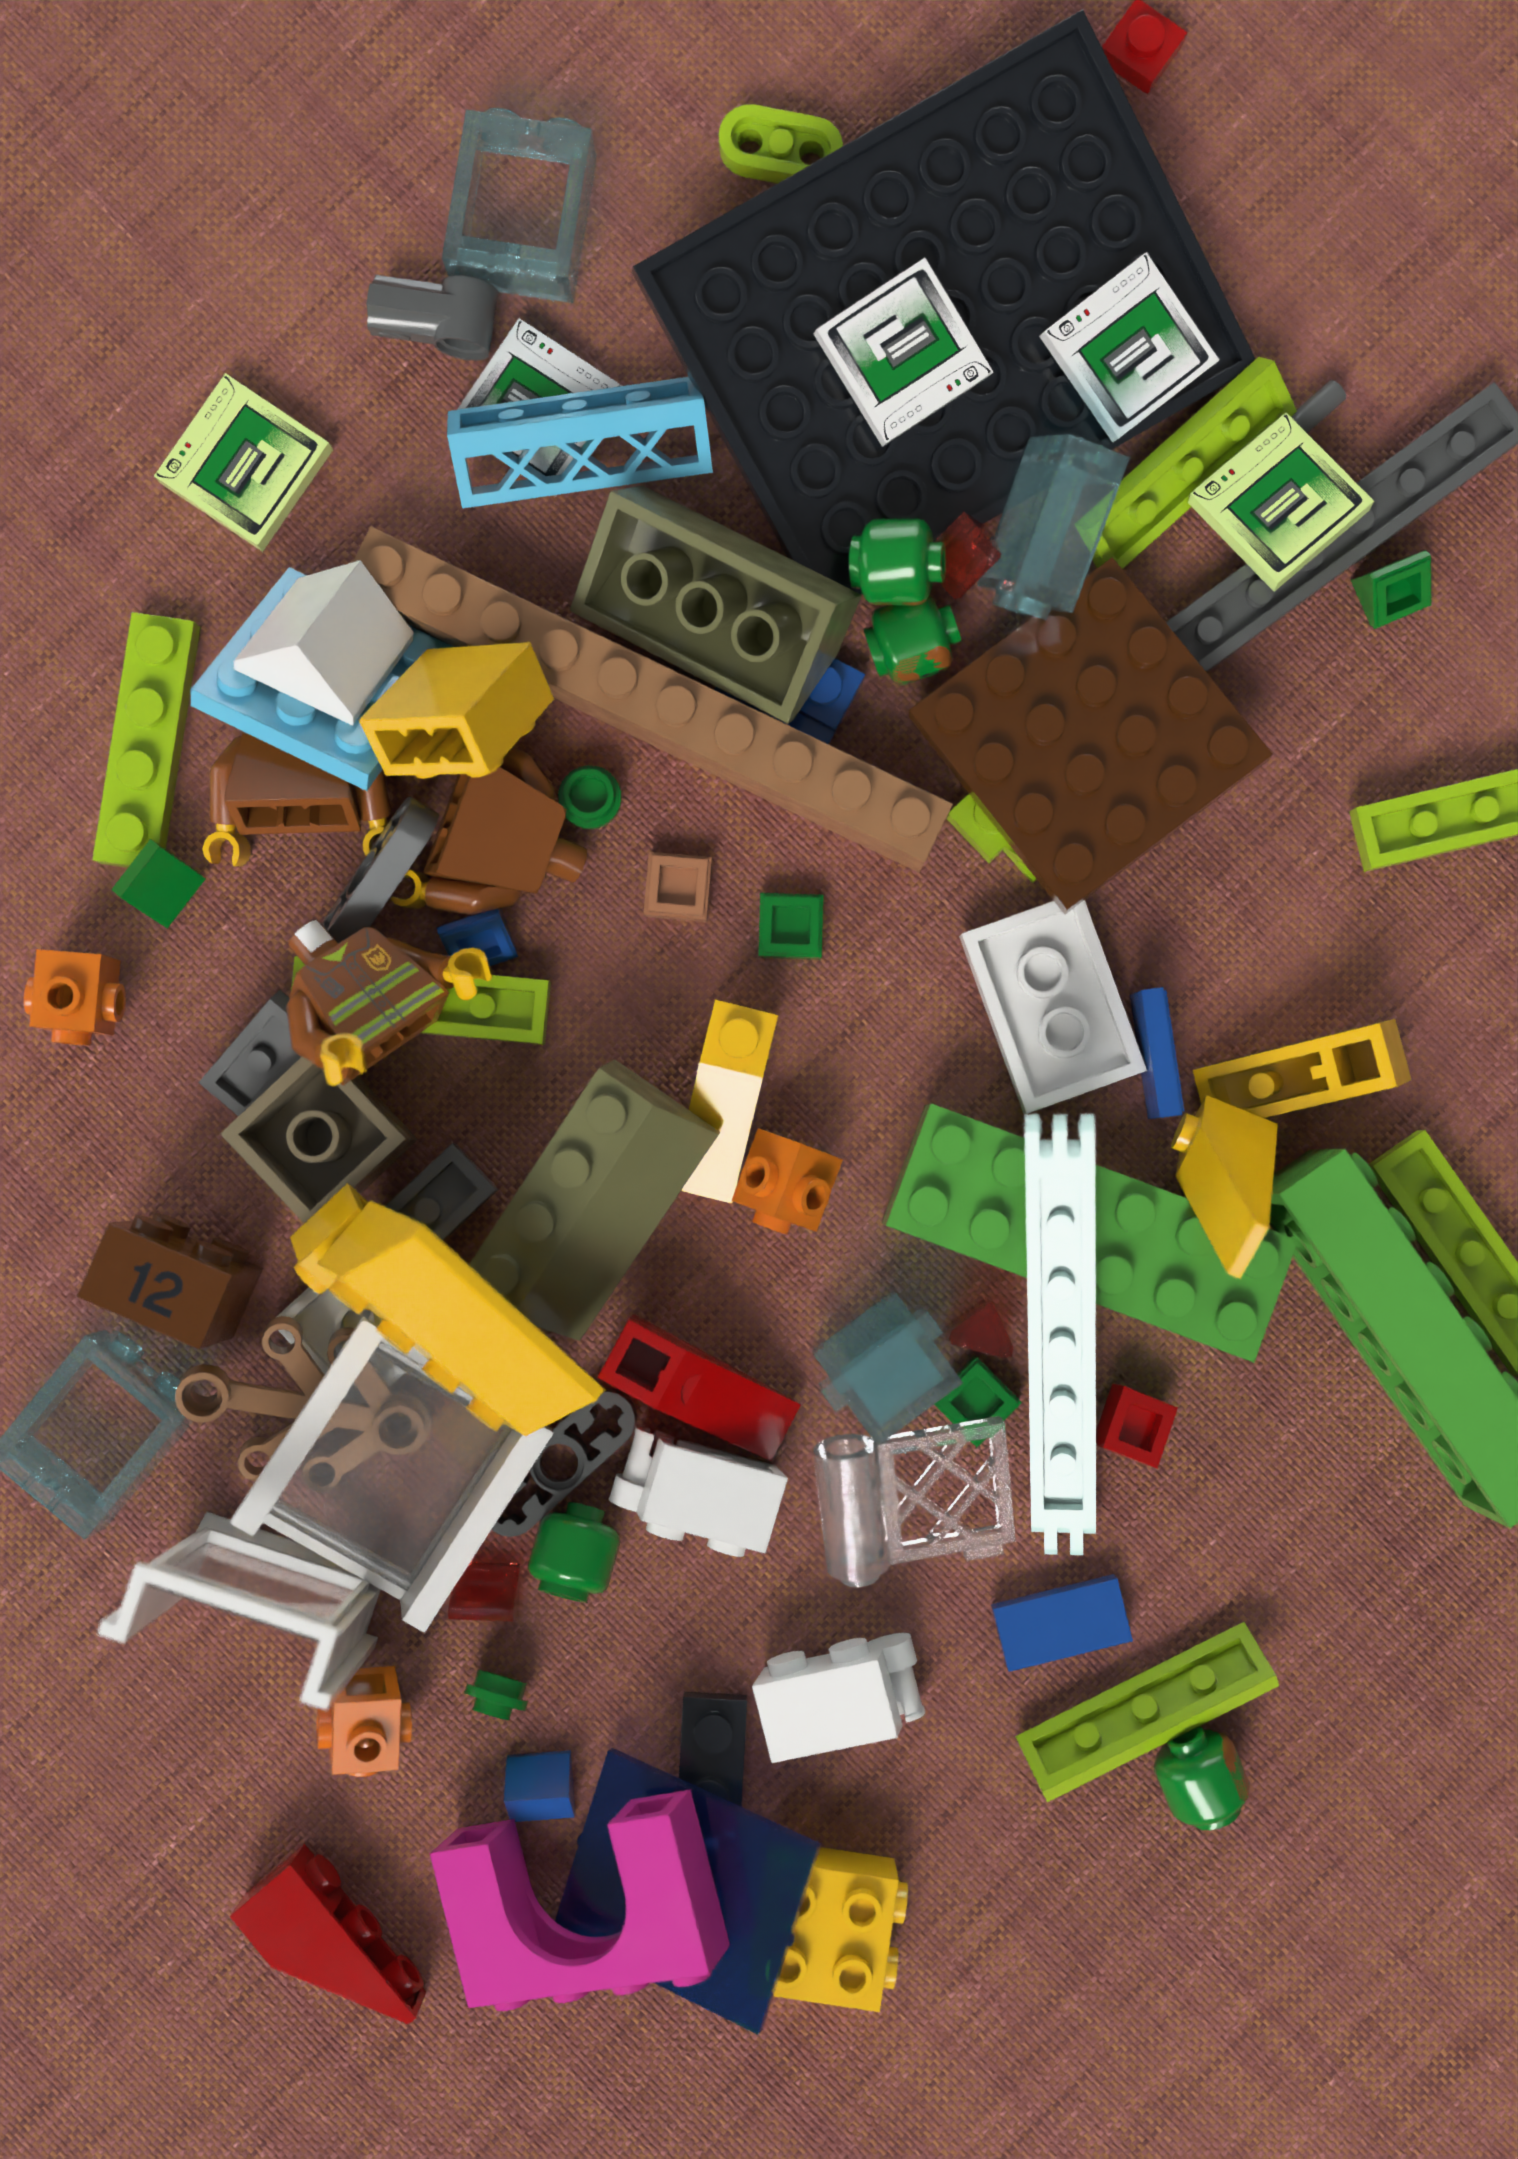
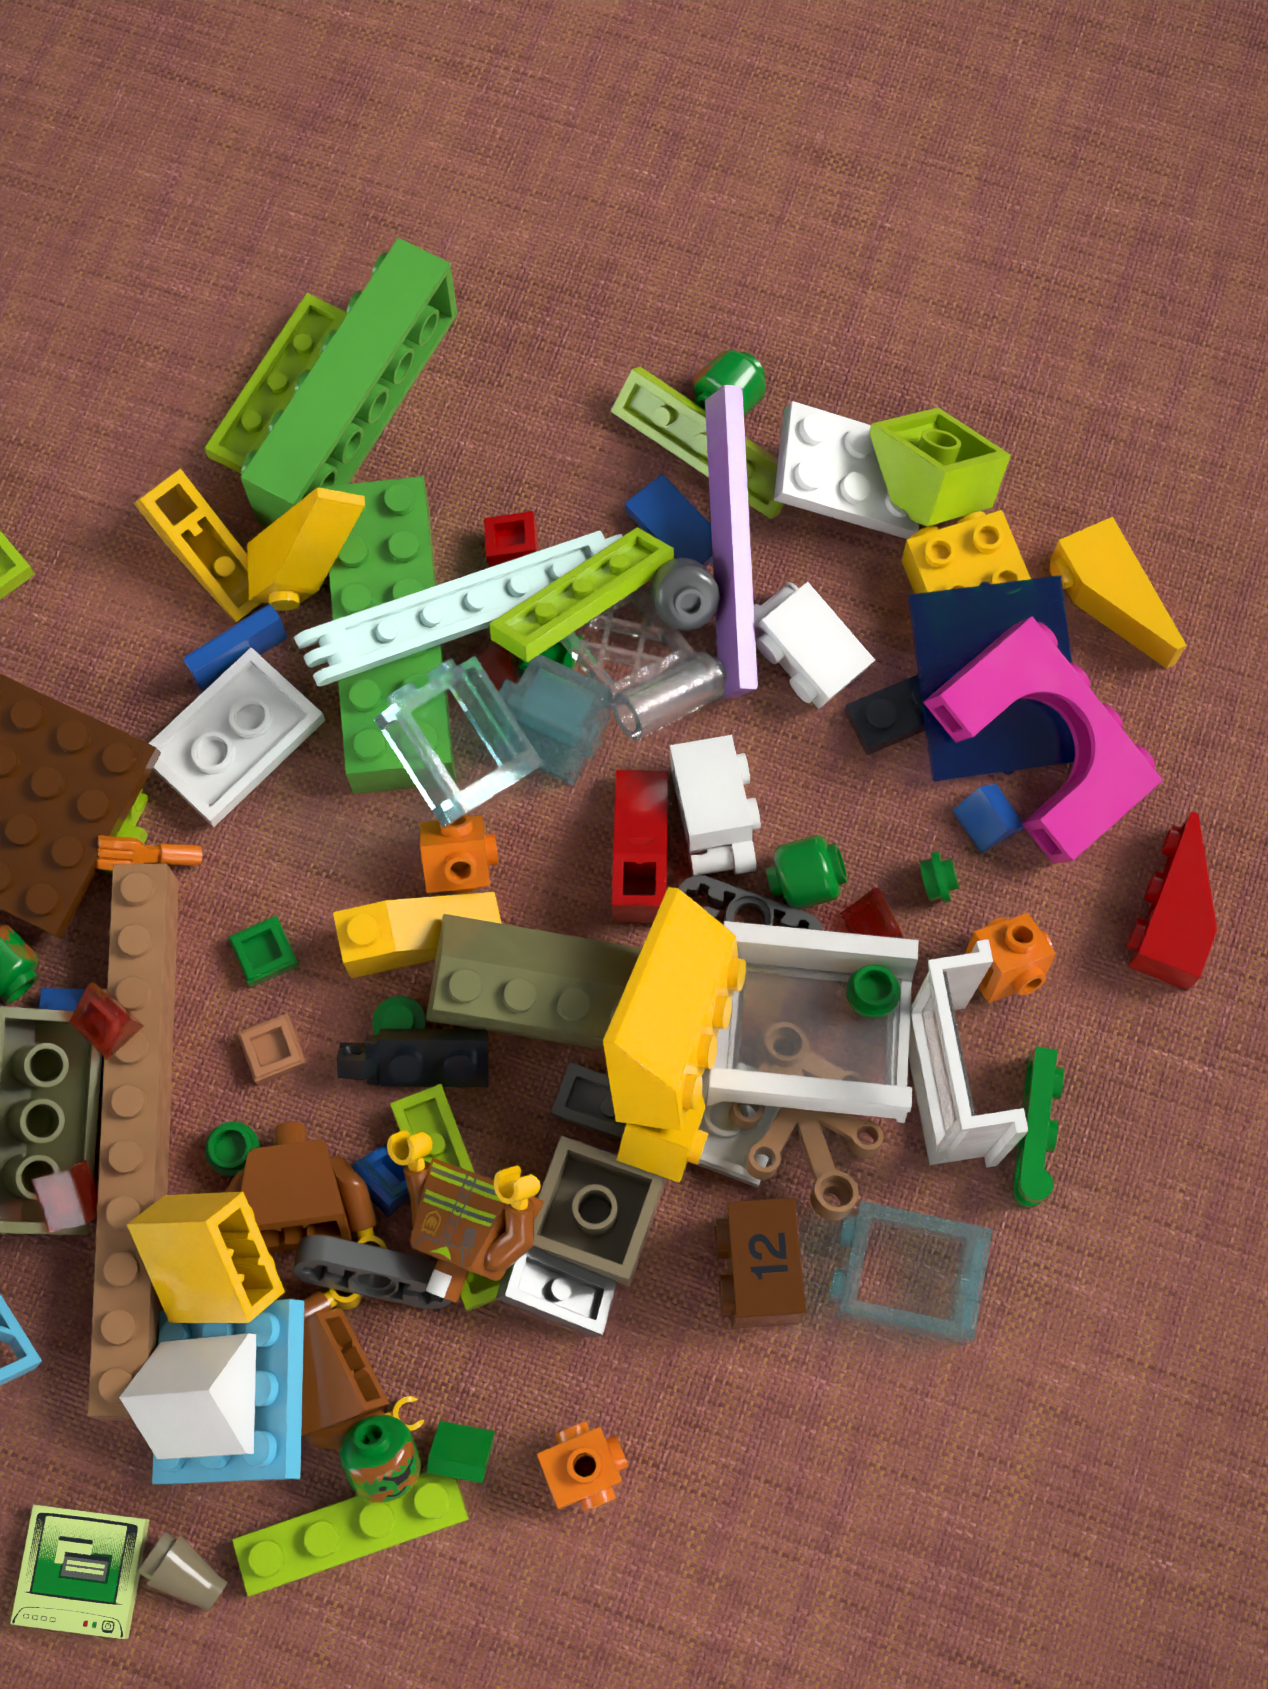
camera: 115 degrees left, 15 degrees down
(162, 800) = (384, 1462): none -> green head
(178, 1646) = (1041, 1085): none -> green plate
(188, 557) = (182, 1572): none -> dark tan cone
(399, 1552) = (873, 991): none -> green plate
(584, 1029) = (418, 1058): none -> black hinge
(608, 601) = (67, 1196): none -> slope
(636, 1032) = (398, 1013): none -> green plate
(725, 2087) = (1113, 588): none -> yellow slope
(770, 717) = (104, 1020): none -> clear red slope
(932, 1292) = (489, 718): none -> clear light blue window
(963, 832) = (131, 850): none -> orange piece
(963, 1588) = (684, 594): none -> dark grey head
(972, 1968) = (937, 466): none -> lime slope
(1004, 1680) = (731, 539): none -> medium lavender tile
(1014, 1471) = (580, 595): none -> lime plate
(1022, 1861) = (834, 471): none -> white plate

